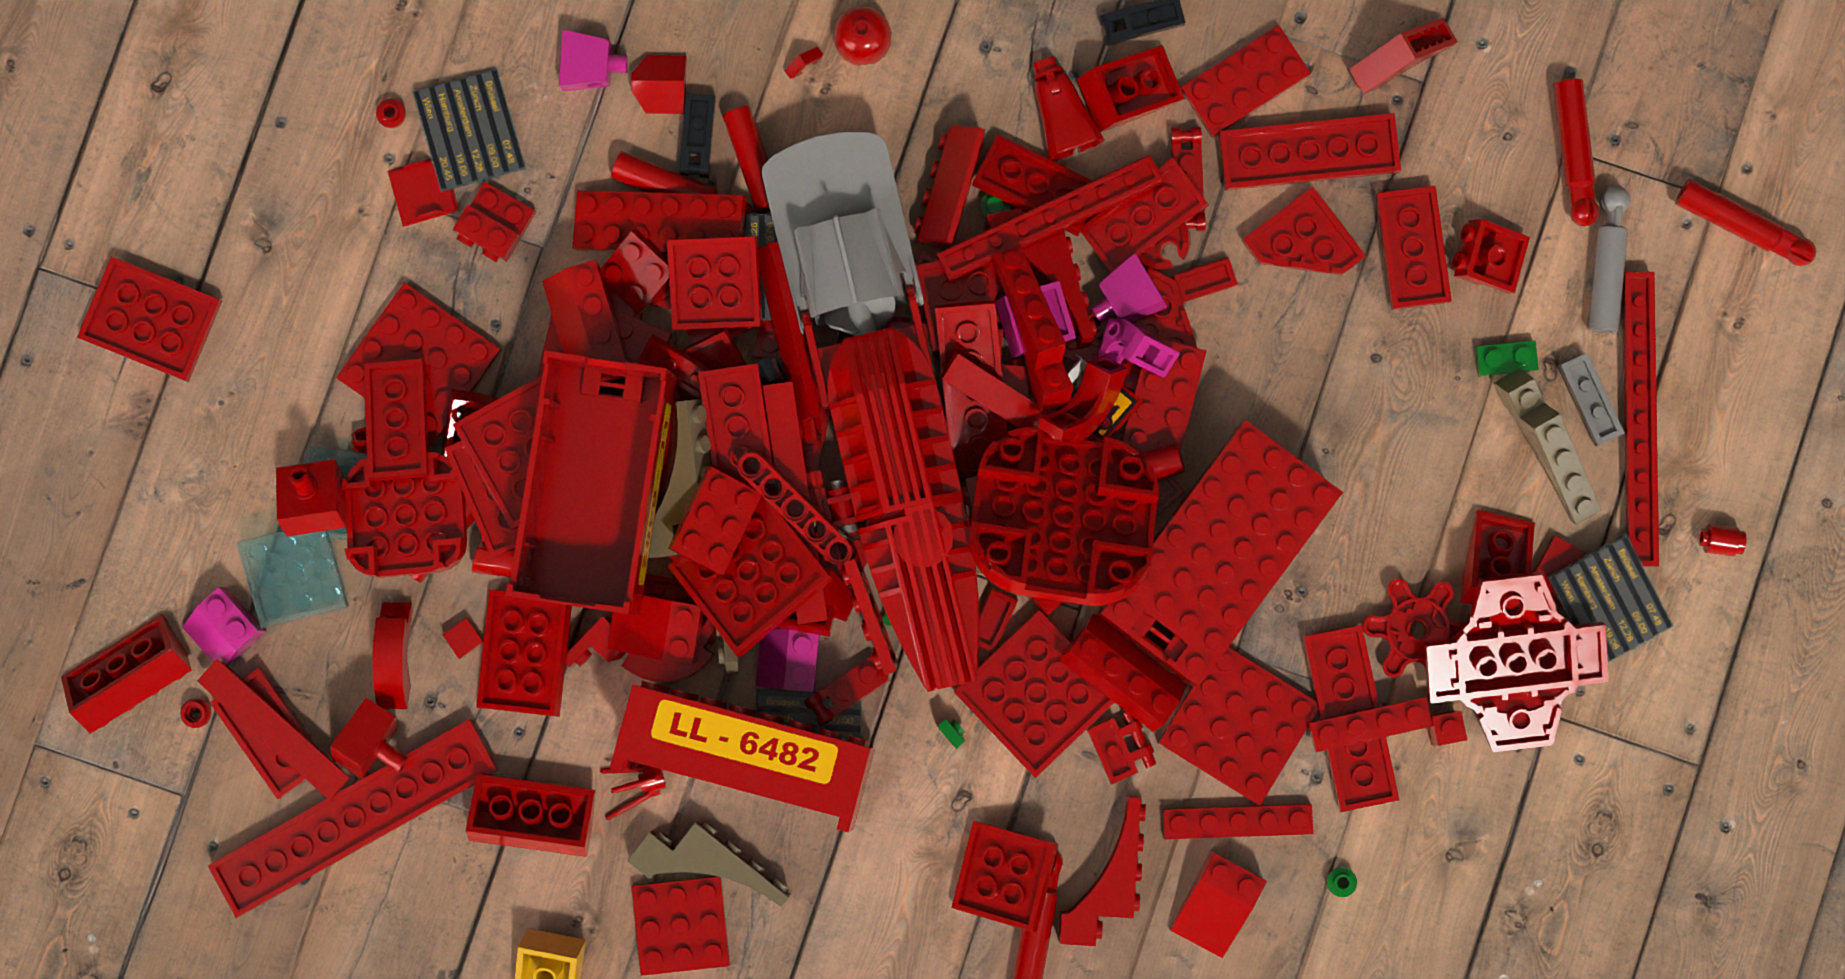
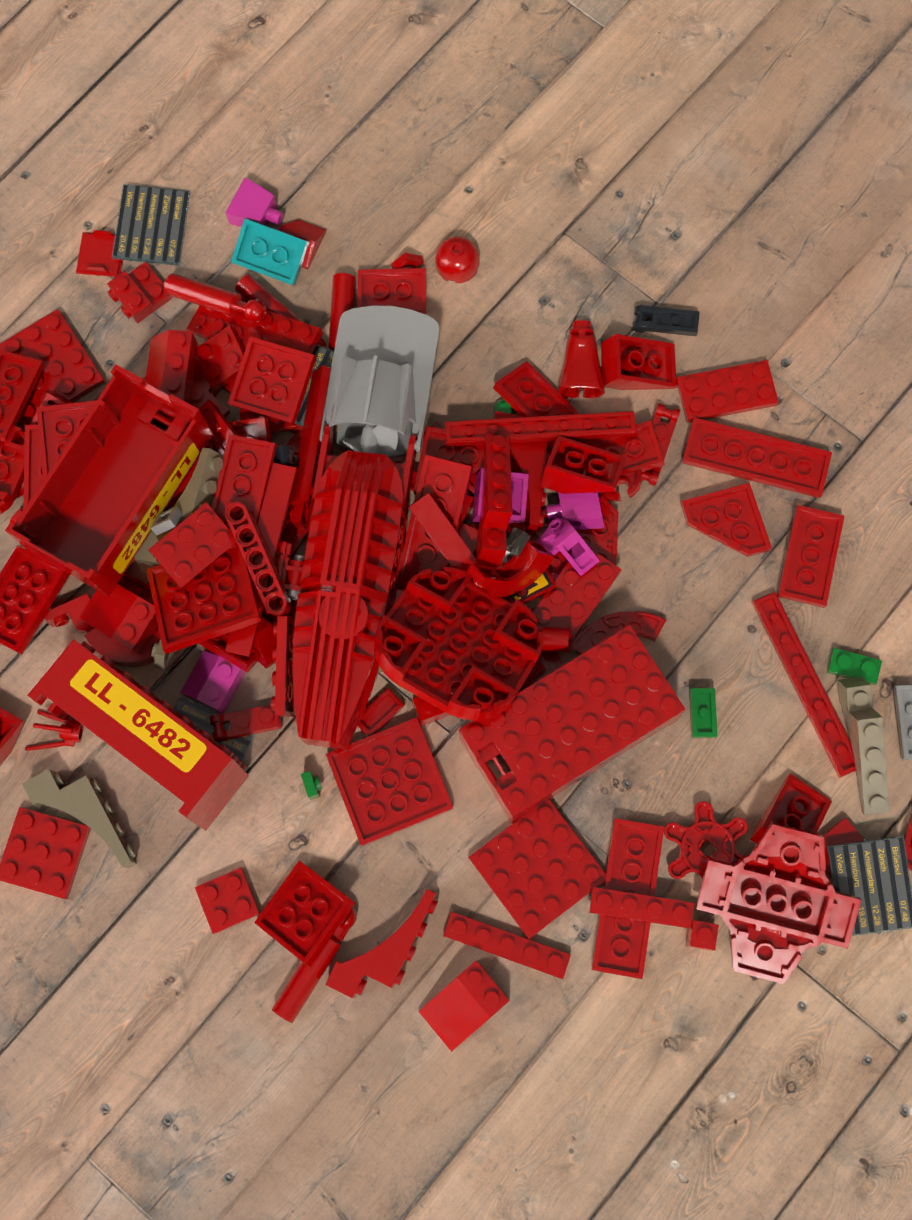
camera: 25 degrees right, 10 degrees down
(397, 119) = (105, 198): red plate -> none
(594, 201) = (213, 297): none -> red piece
(633, 113) = (269, 252): none -> teal plate
(672, 504) = (166, 520): none -> light grey tile
(697, 134) = (310, 284): black plate -> none
(800, 107) = (392, 288): none -> red plate
(910, 895) = (227, 900): none -> red plate
(951, 186) = (477, 385): red slope -> none
(1079, 368) = (516, 541): none -> clear smoke tile
(1113, 750) = (430, 852): red plate -> none
(1118, 250) = (581, 468): none -> red slope
(1124, 673) = (461, 790): red slope -> none
(1205, 280) = (641, 522): red tile -> none
(1222, 414) = (643, 623): none -> red tile
(1332, 880) = (563, 1028): green plate -> none
(1357, 479) = (703, 713): none -> green plate
(1402, 54) = (853, 408): red arch -> none
(1458, 398) = (806, 683): none -> red tile
(1490, 255) = (869, 583): red plate -> none

